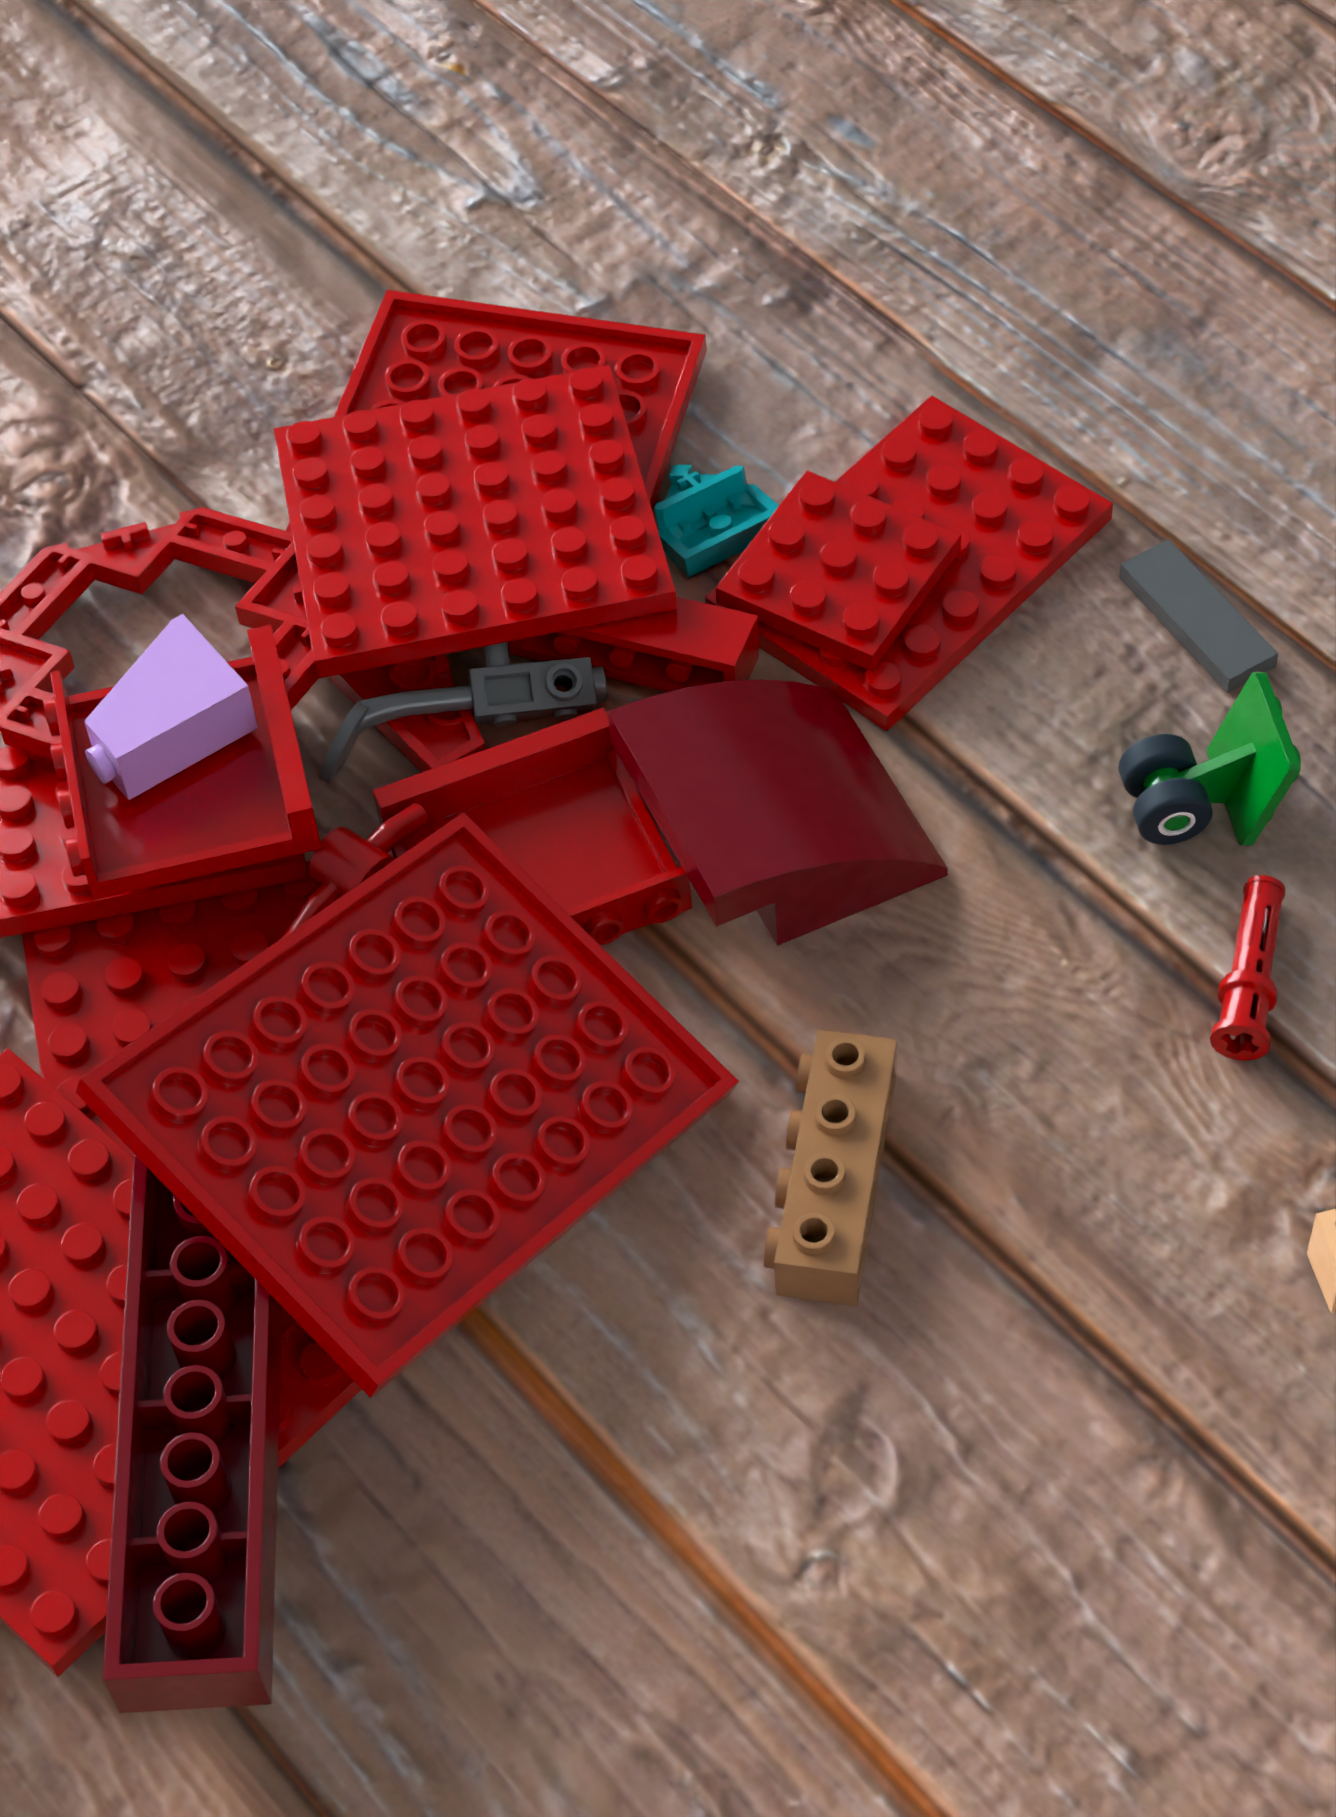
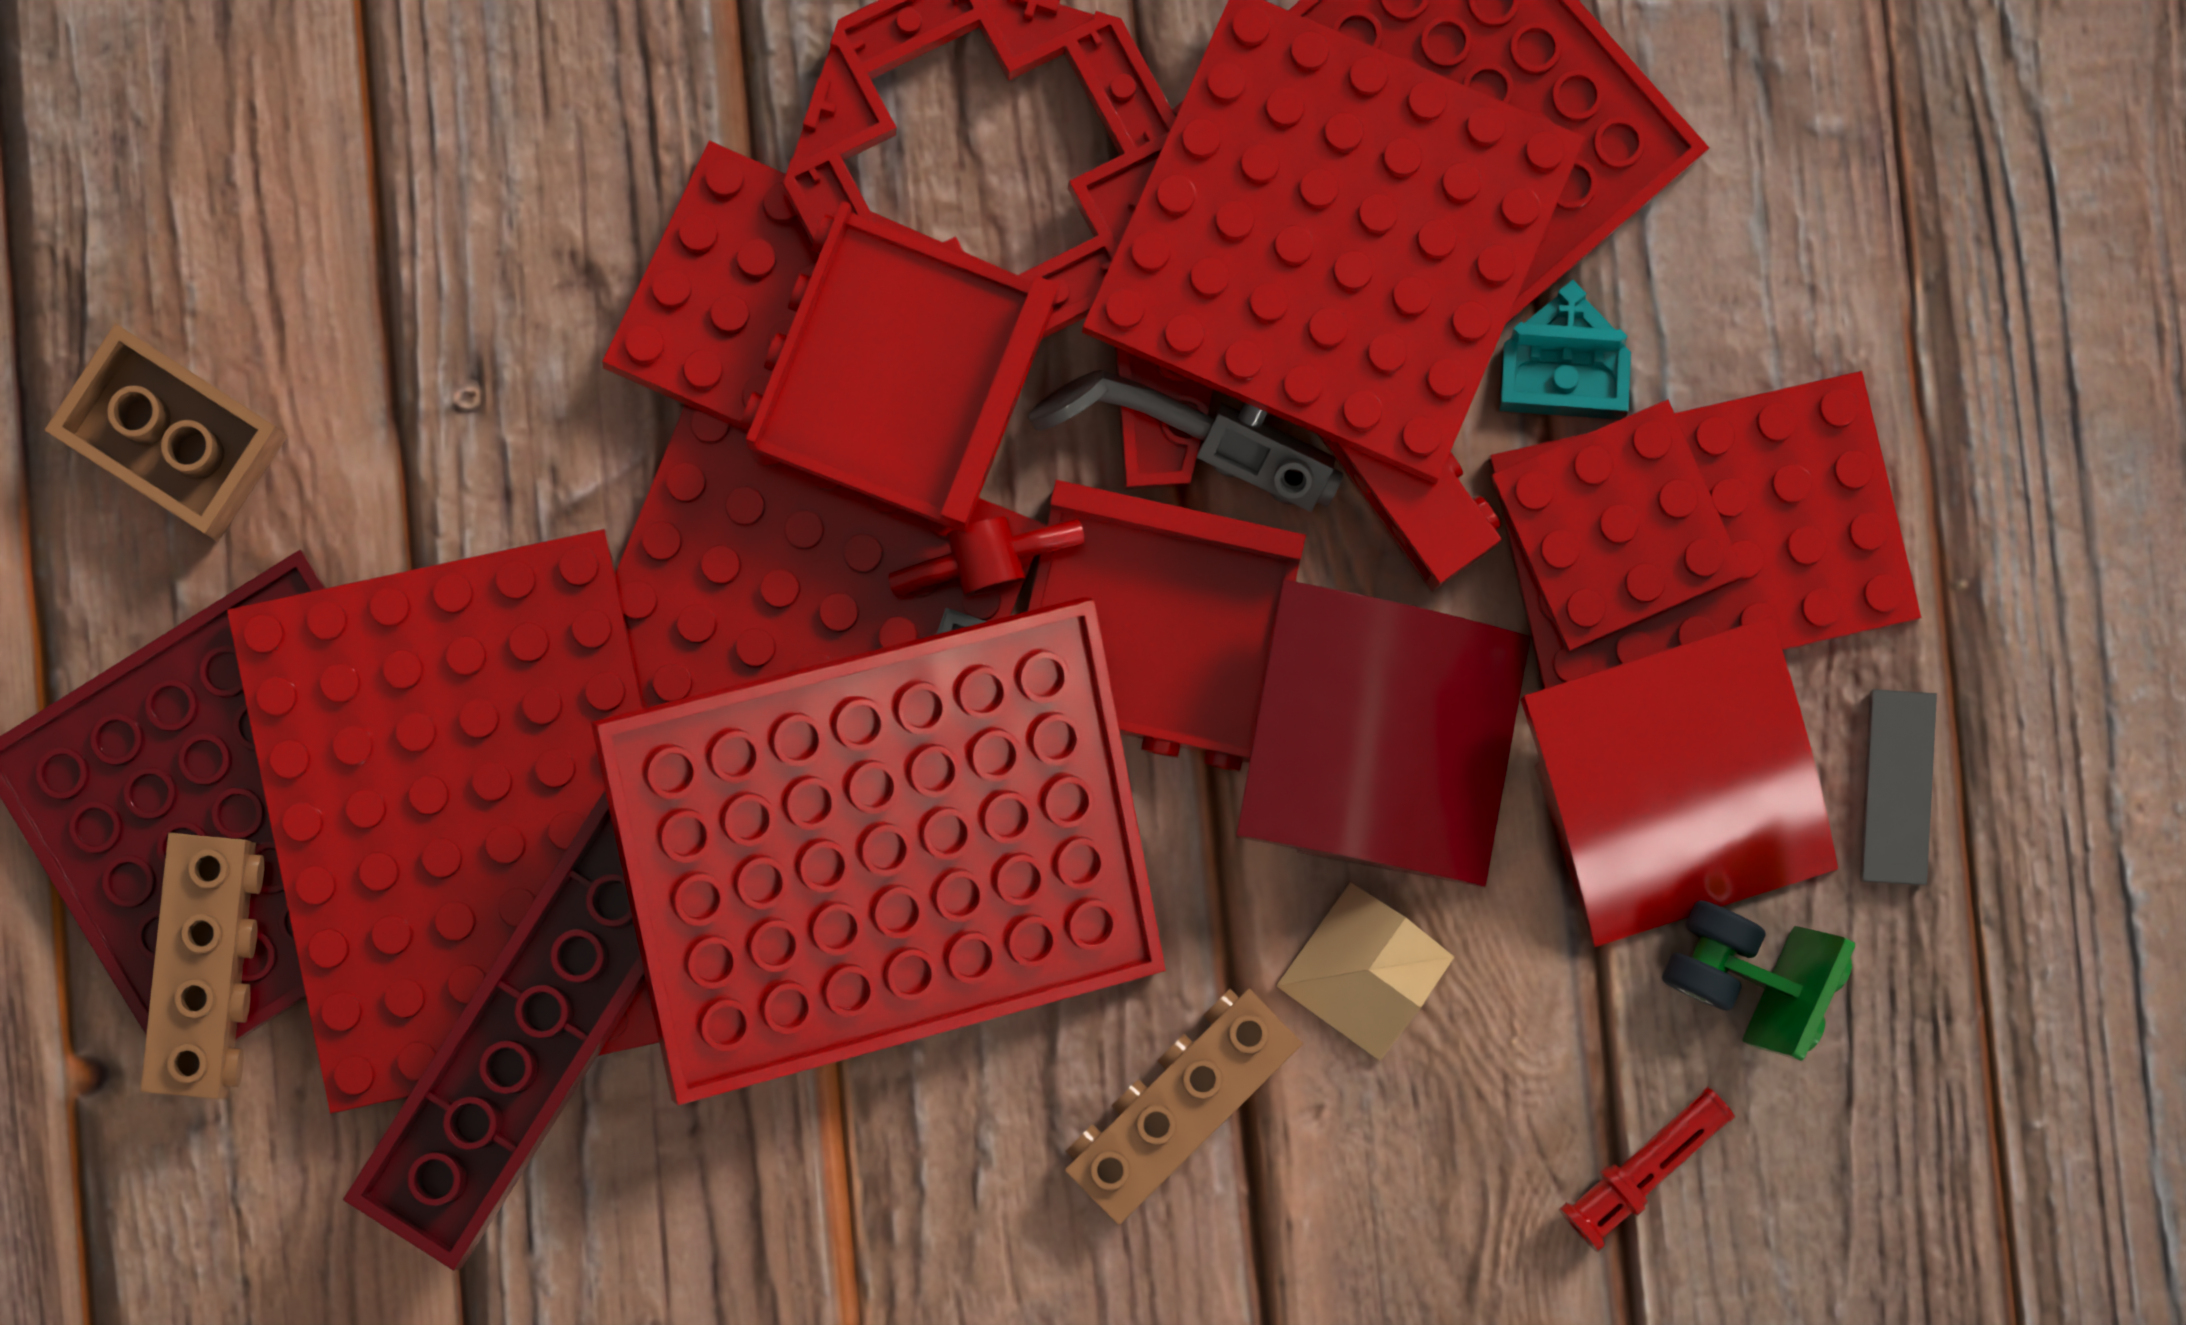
camera: 35 degrees right, 30 degrees up
(168, 712) = (914, 317): lavender slope -> none
(905, 976) = (1366, 971): none -> tan slope
(1029, 687) = (1681, 781): none -> red slope

